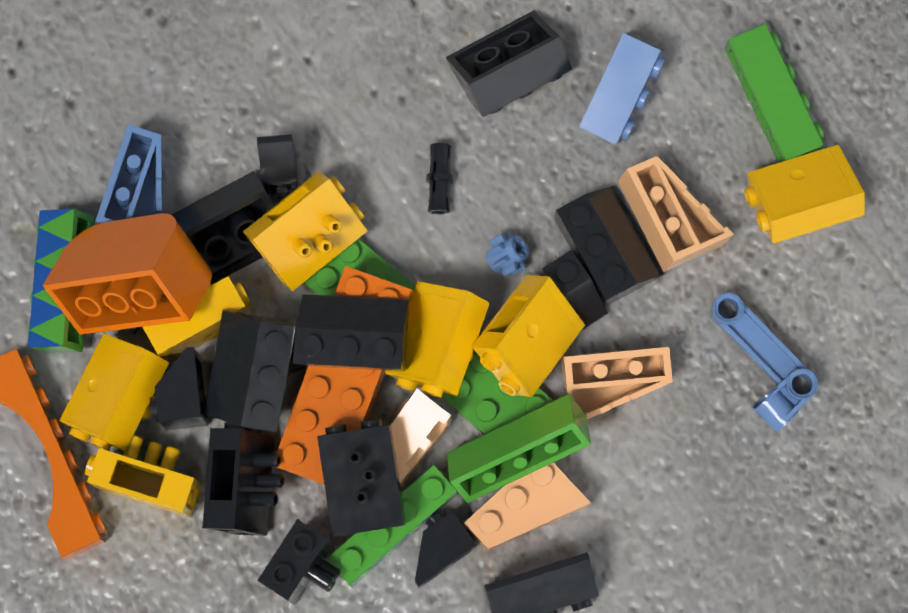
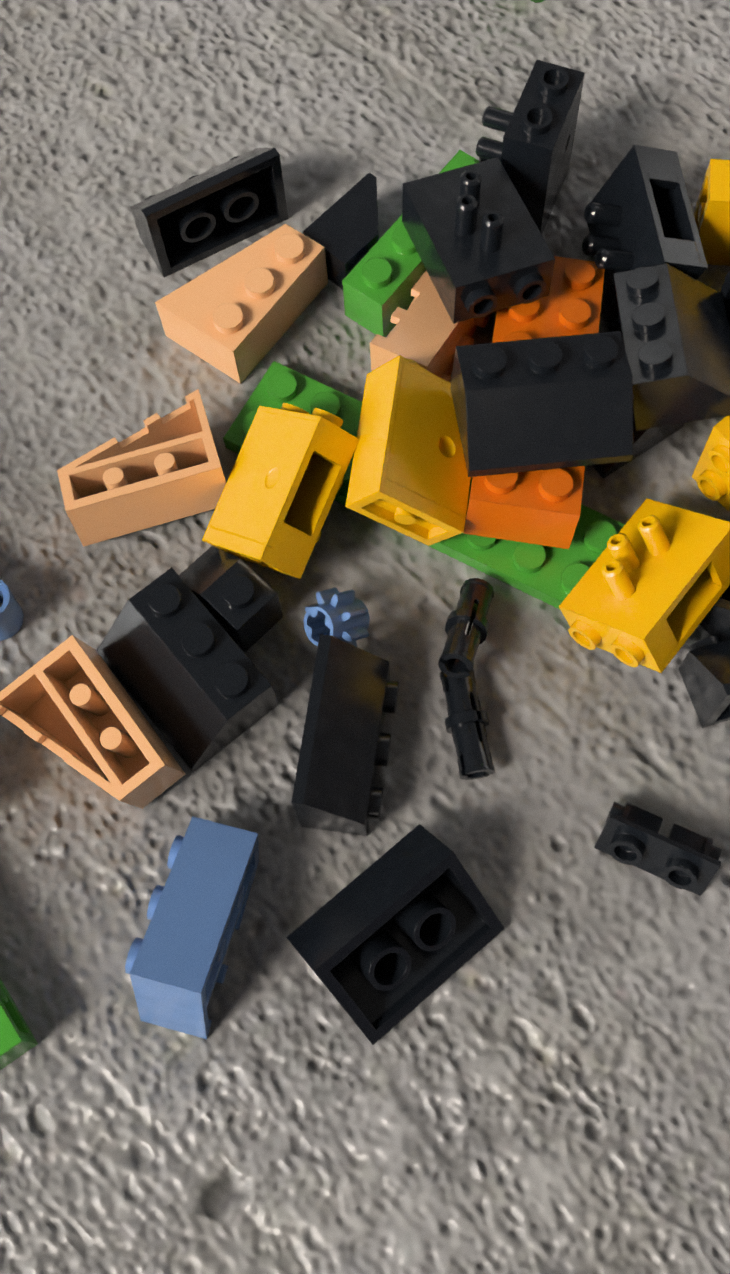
camera: 175 degrees right, 10 degrees down
(356, 87) = (681, 859): none -> black hinge
(427, 231) = (461, 649): none -> black pin
(516, 174) = (344, 739): none -> black slope
(518, 448) = (264, 342): bright green brick -> none

